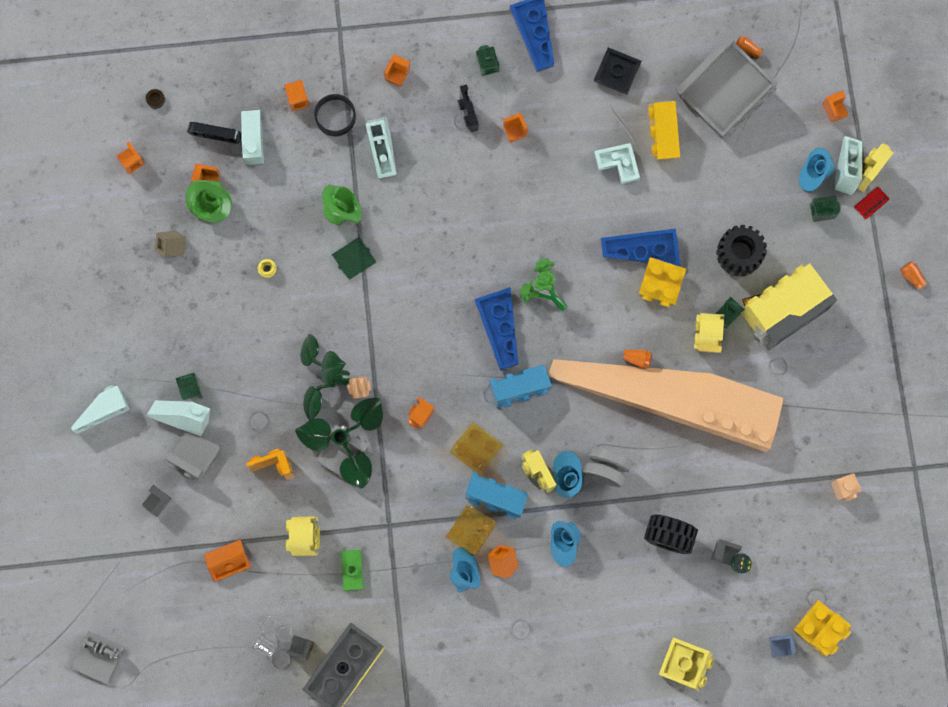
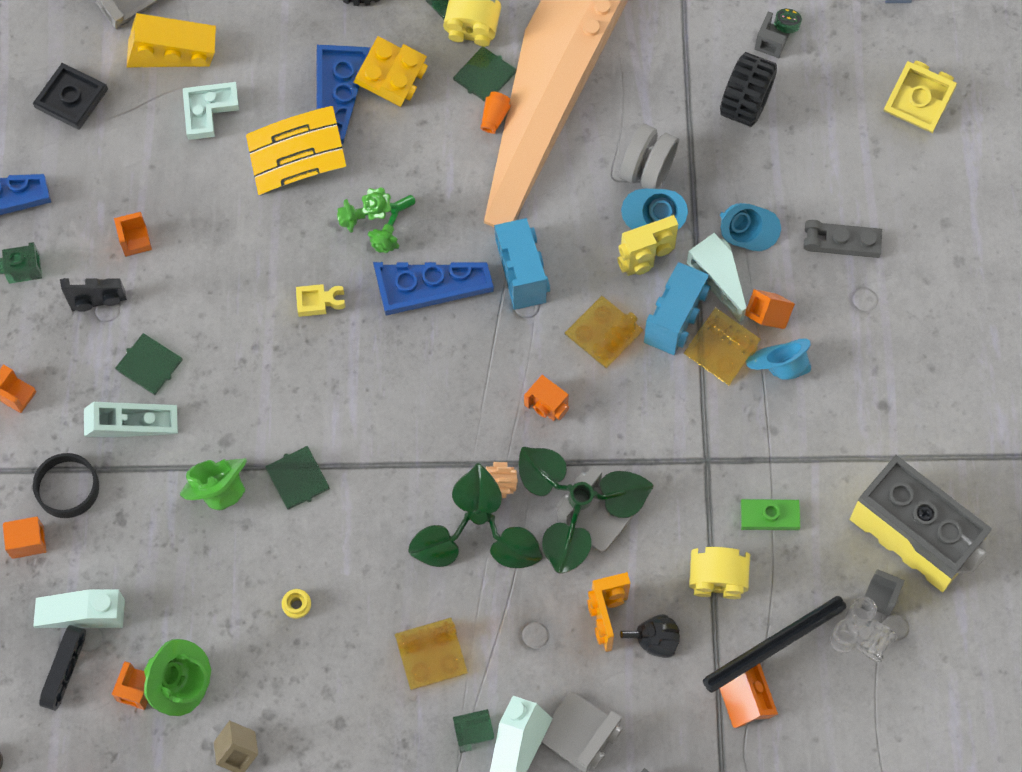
camera: 80 degrees left, 10 degrees down
(240, 356) = (431, 653): none -> clear yellow hinge
(257, 575) = (774, 644): none -> black axle
(262, 499) = (656, 636): none -> black piece
(425, 153) = (148, 364): none -> clear green piece
(480, 252) = (314, 299): none -> light yellow plate
(531, 522) = (716, 259): none -> light aqua slope
(565, 612) = (843, 239): none -> dark grey plate
(592, 225) = (295, 149): none -> yellow sticker
(670, 348) = (484, 73): none -> clear green piece

